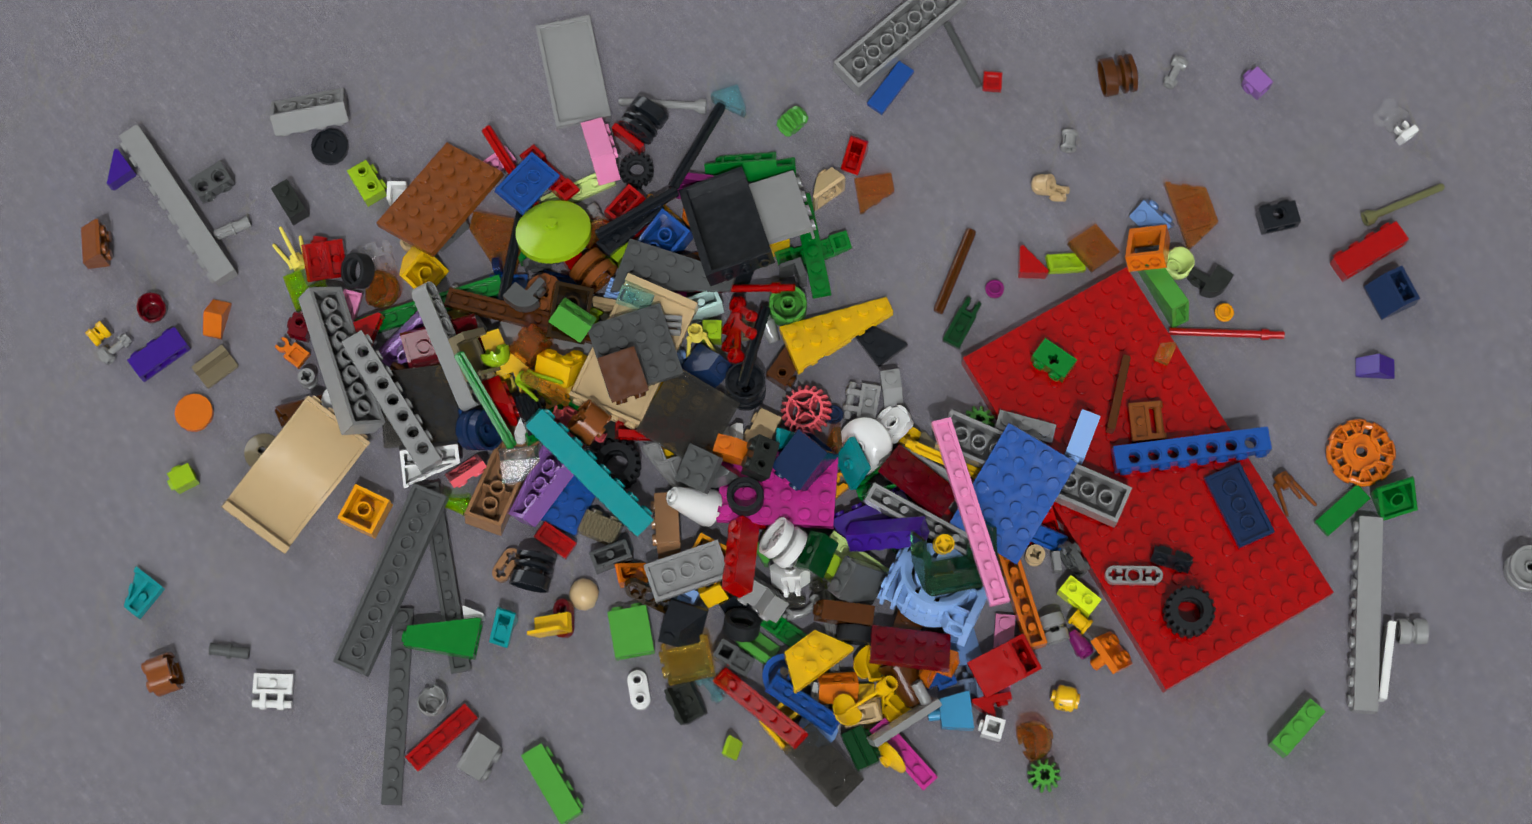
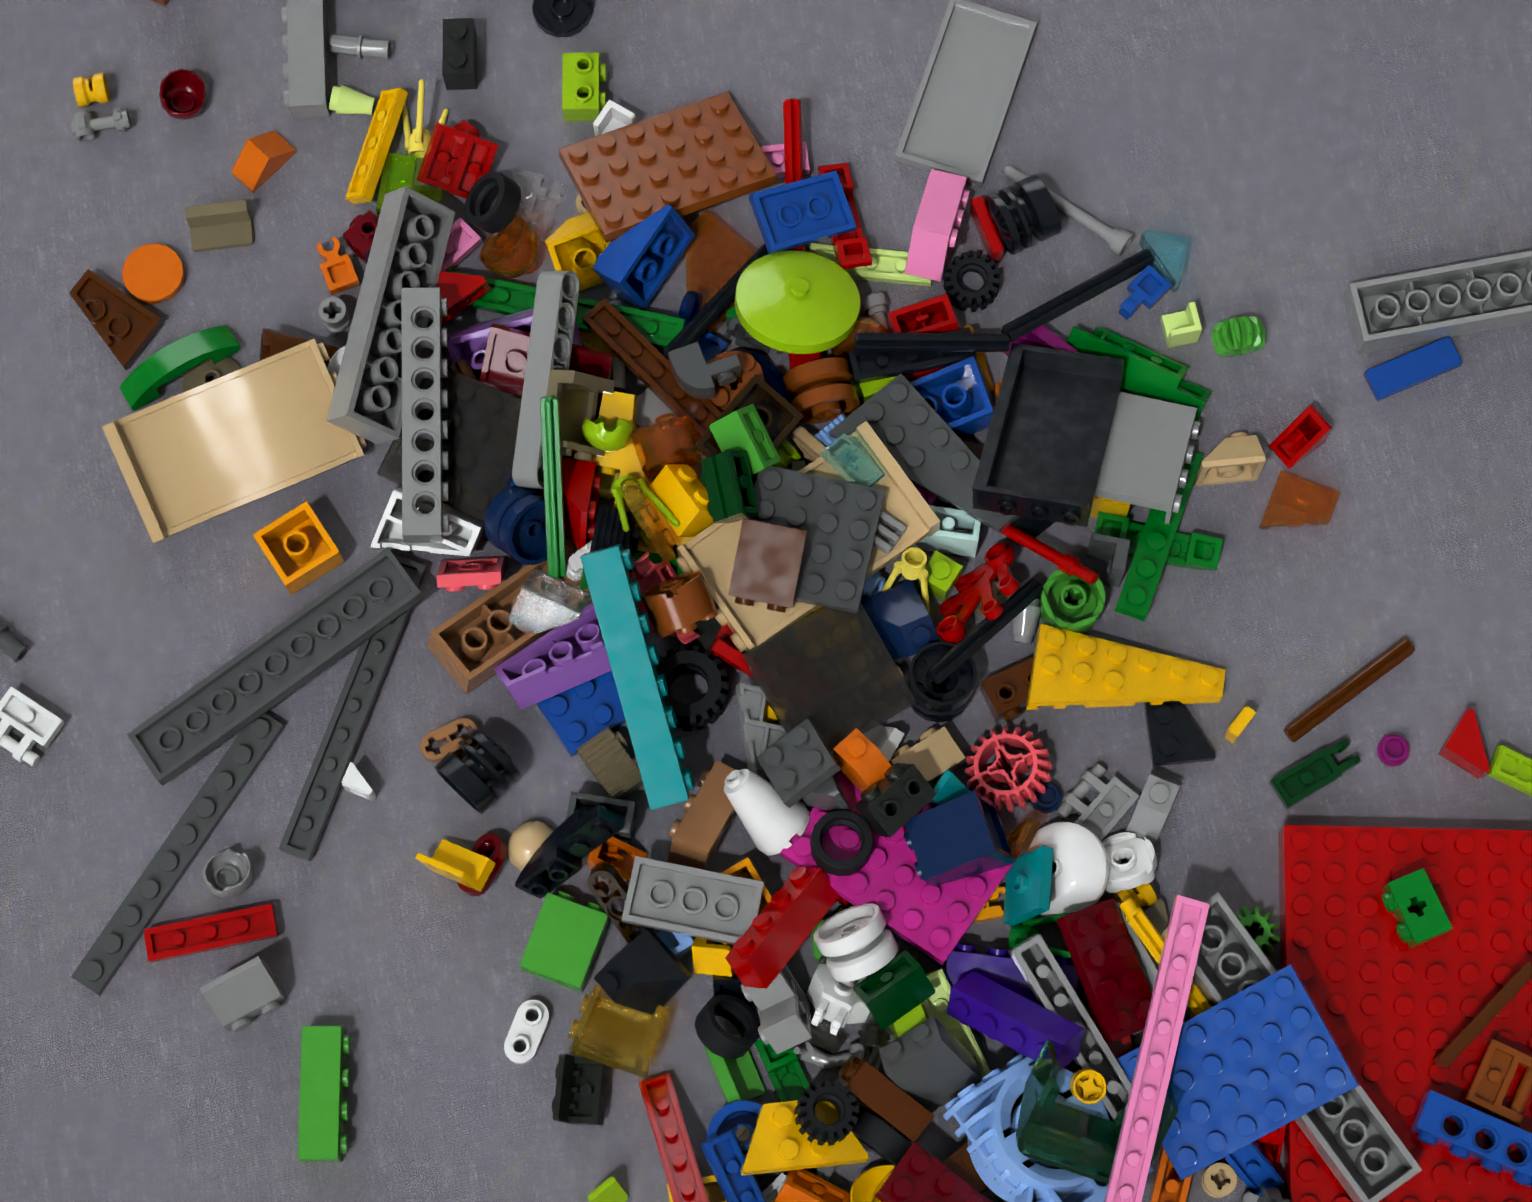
camera: 30 degrees right, 0 degrees up
(158, 354) = (154, 164): dark purple brick -> none
(182, 478) = (81, 356): lime brick -> none
(188, 447) = (115, 316): none -> reddish brown wing
(235, 452) = (174, 360): none -> green slope
(245, 260) = (349, 101): none -> yellowish green cone
(274, 276) = (376, 145): none -> yellow tile
(449, 638) = (303, 796): green slope -> none
(456, 255) = (644, 256): none -> blue slope
(458, 504) = (432, 612): clear neon green cone -> none
(503, 627) = (389, 827): teal slope -> none
(555, 540) = (538, 745): red plate -> none
(578, 347) = (729, 486): none -> dark green brick
(603, 581) = (565, 847): none -> black slope
(717, 695) = (632, 1107): clear light blue bar -> none
(729, 123) = (1146, 290): none -> blue plate
(732, 658) = (686, 1067): dark grey brick -> none
(759, 132) = (1182, 326): none -> yellowish green panel
(819, 647) = (812, 1126): none -> black tyre
(910, 320) = (1239, 724): none -> yellow tile
(1039, 429) = (1325, 989): light grey plate -> none
(1082, 436) = (1390, 1048): light blue brick -> none

